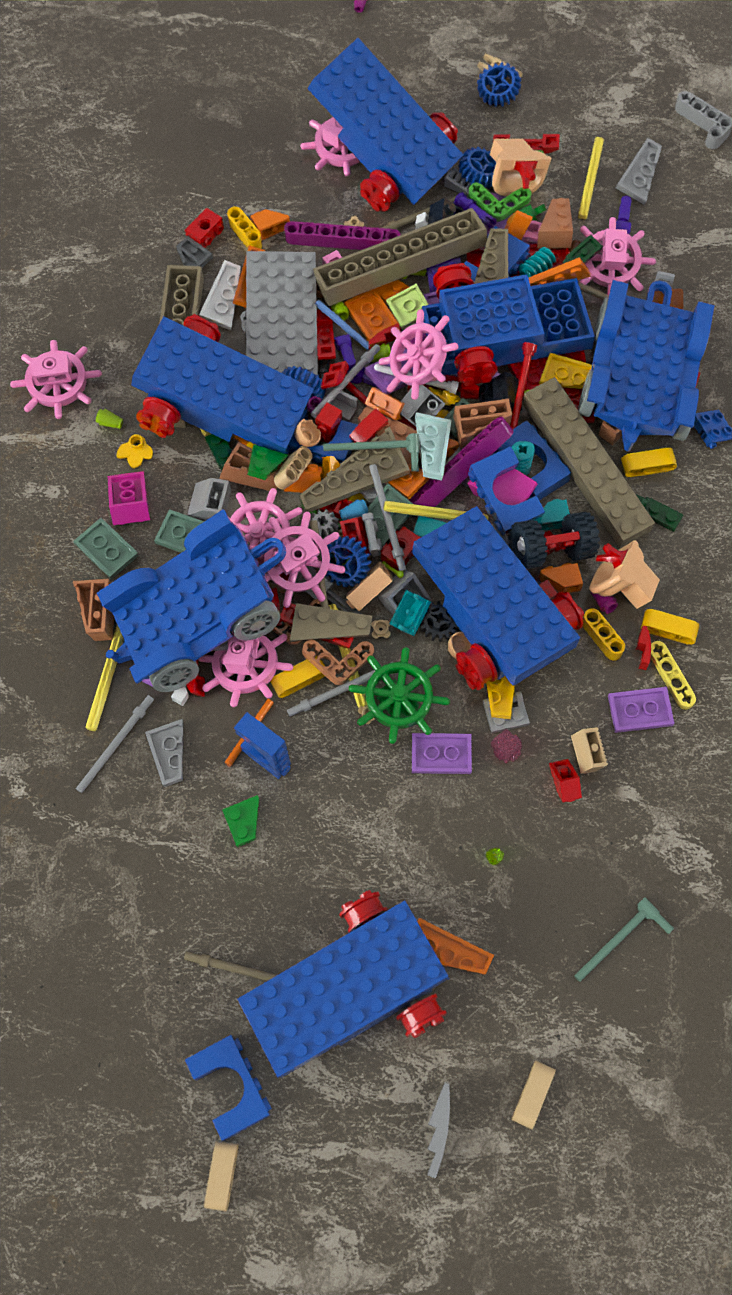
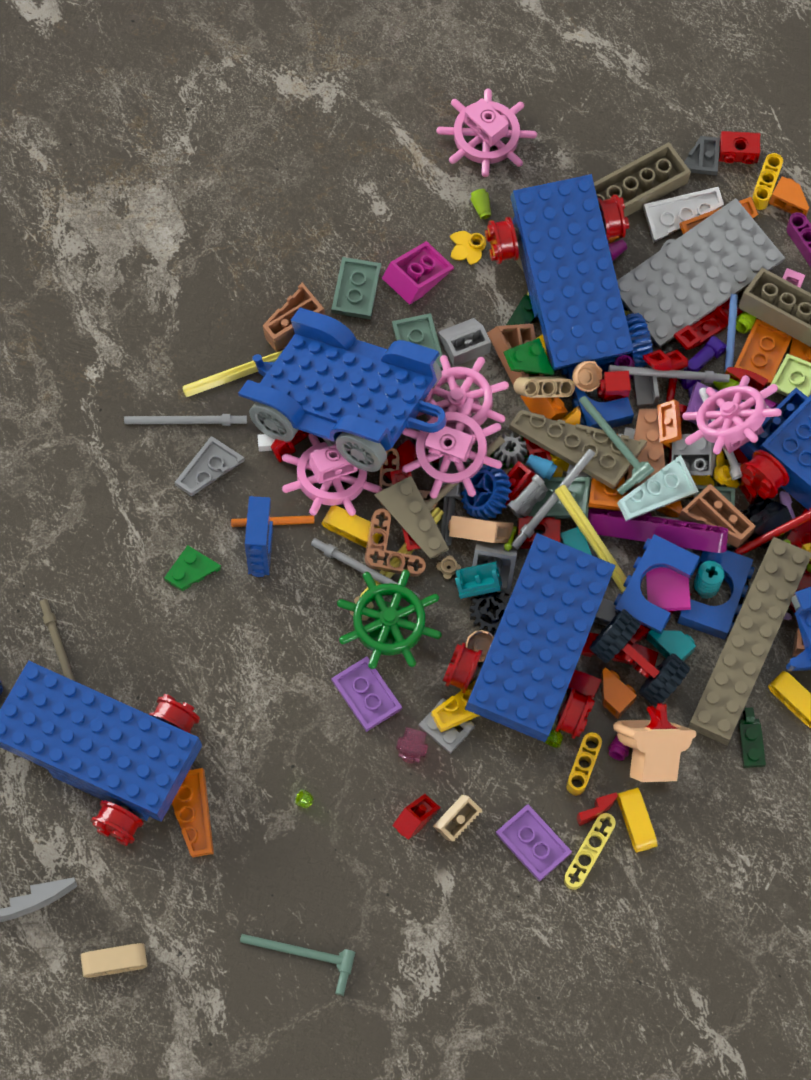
camera: 50 degrees right, 0 degrees up
(369, 427) = (634, 424): red slope -> none

